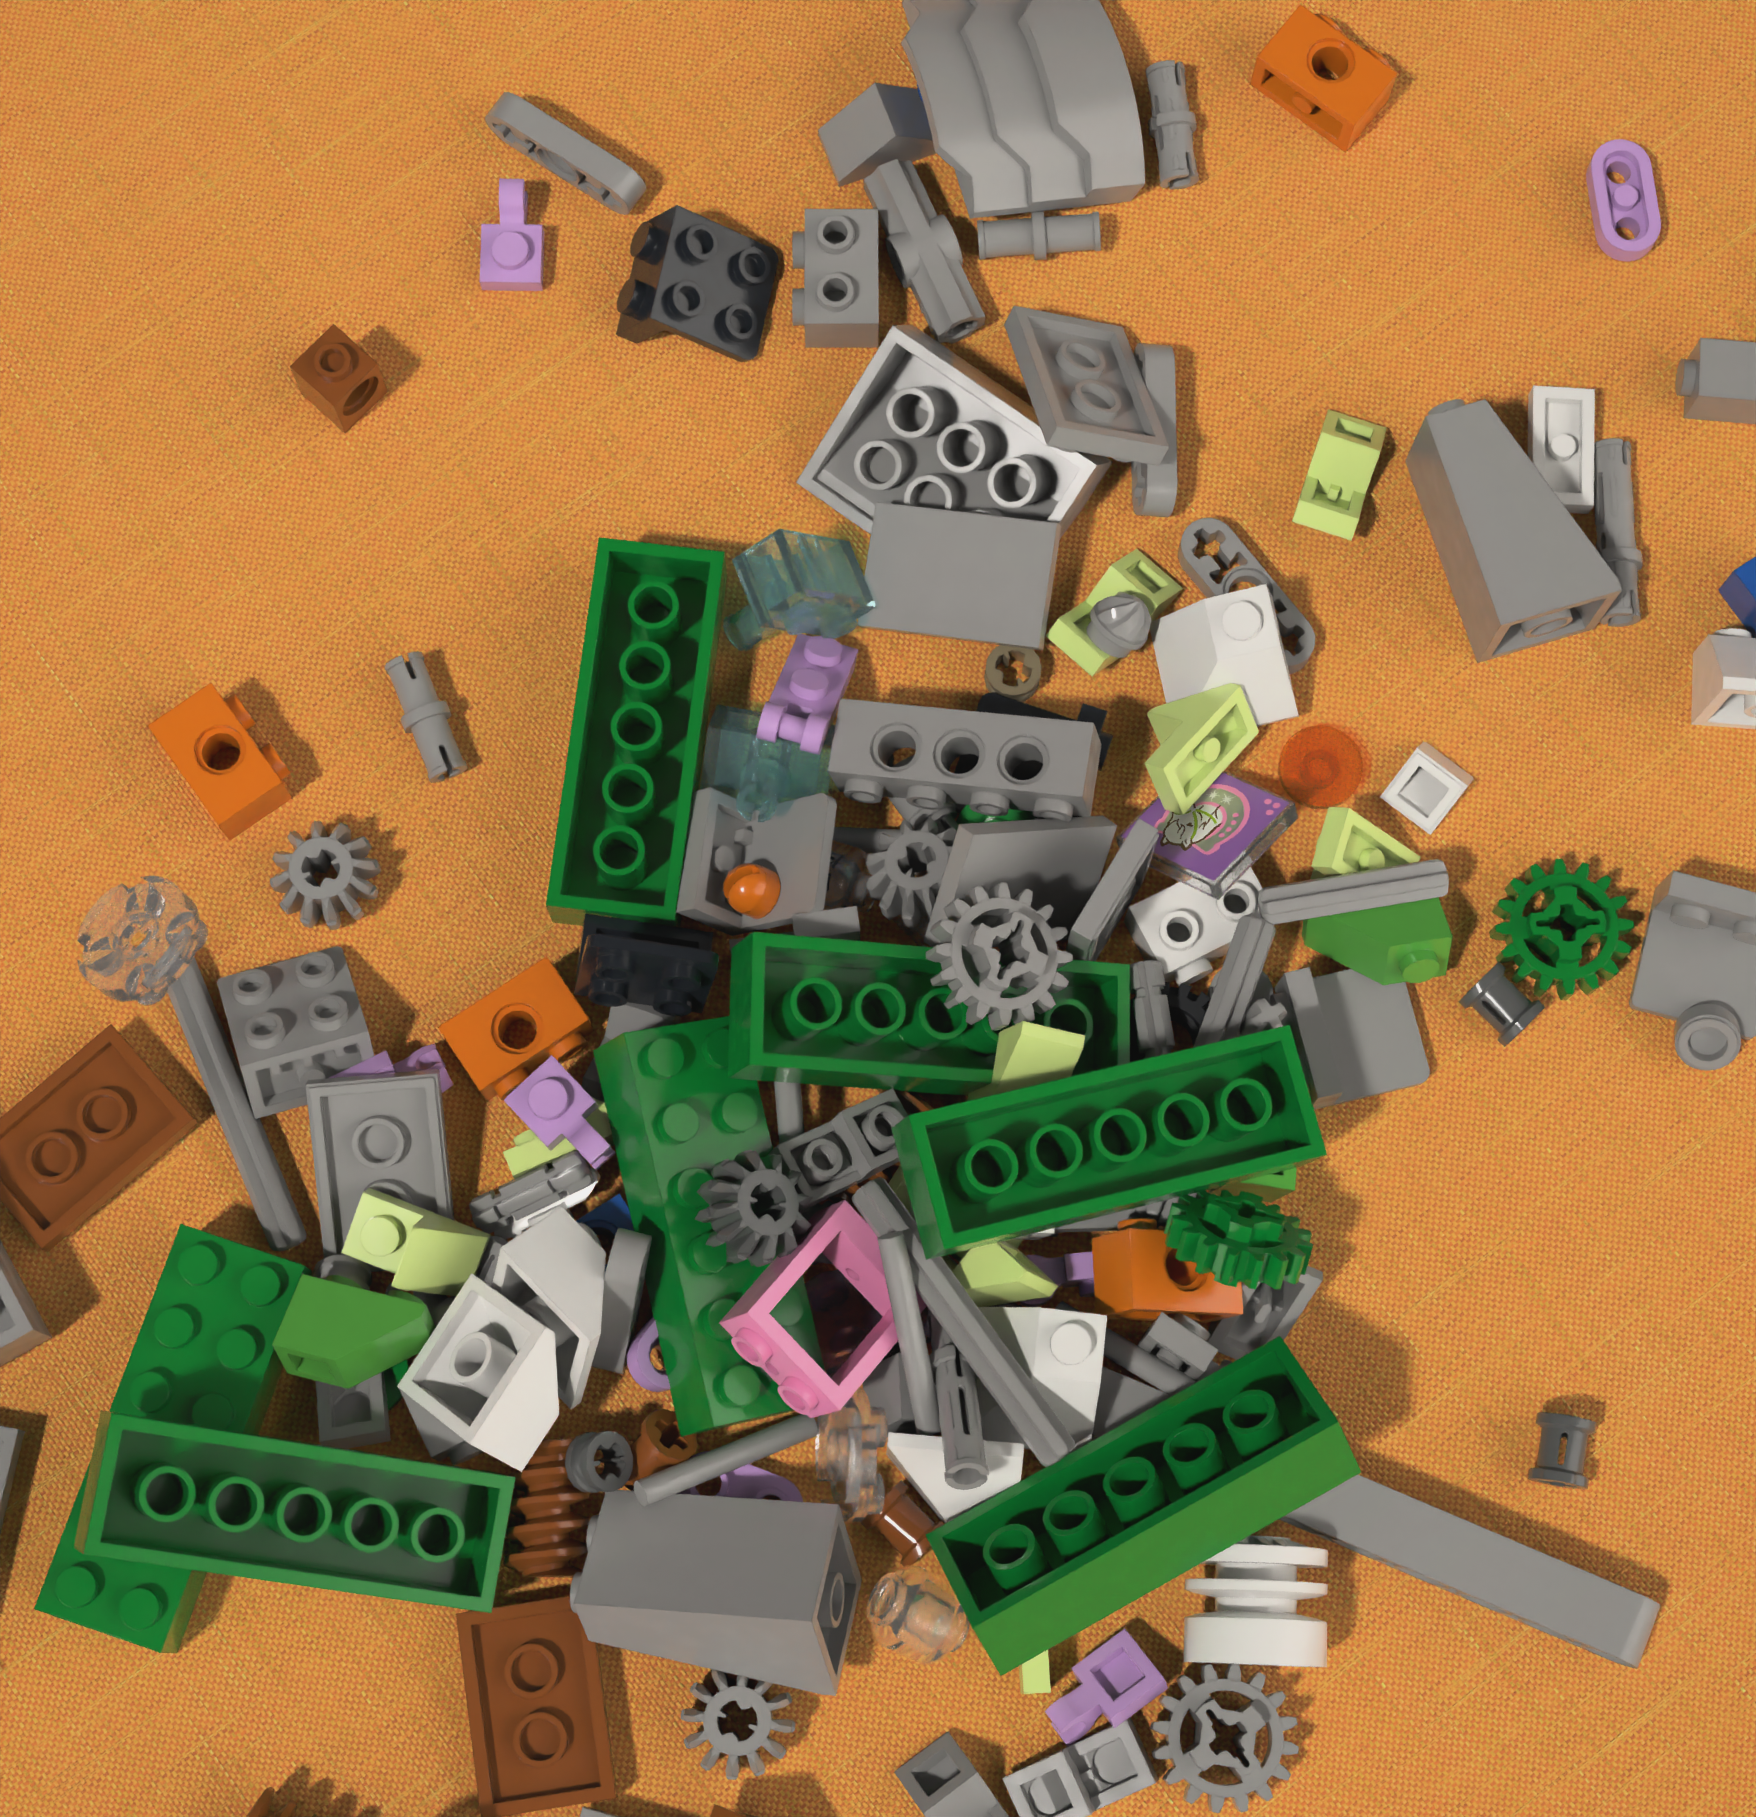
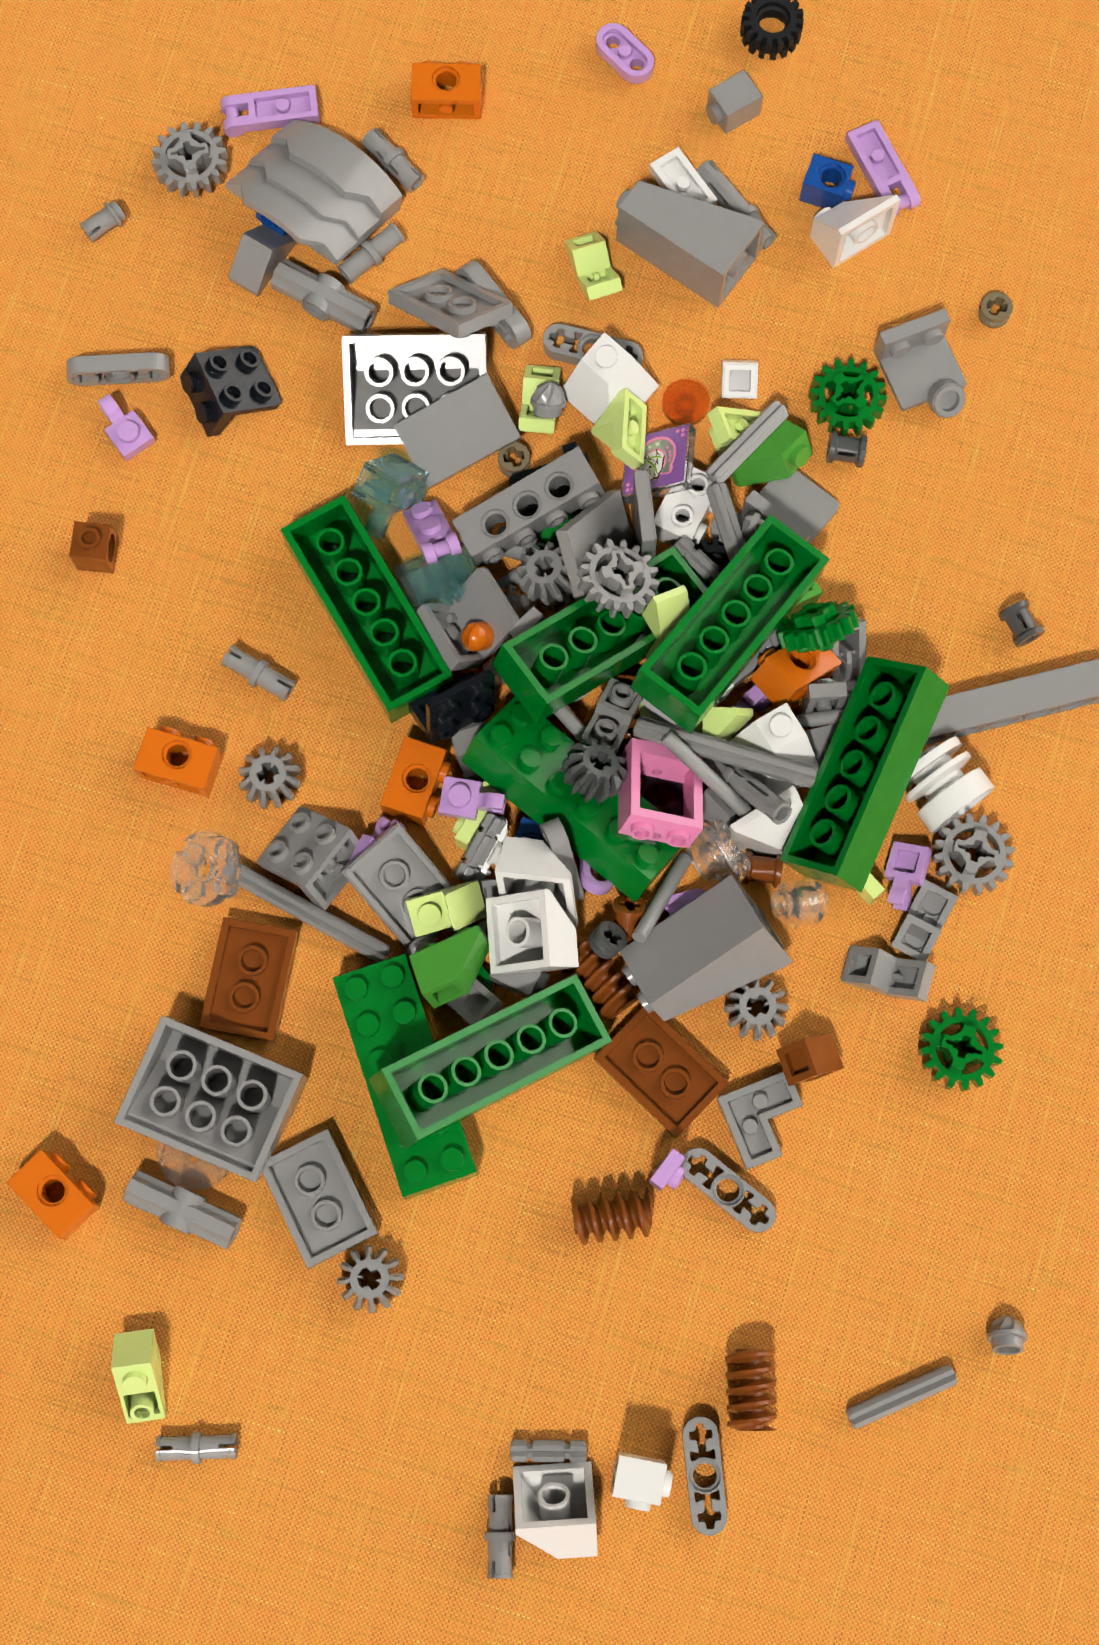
camera: 35 degrees left, 0 degrees up
(839, 278) = (294, 336): light grey brick -> none

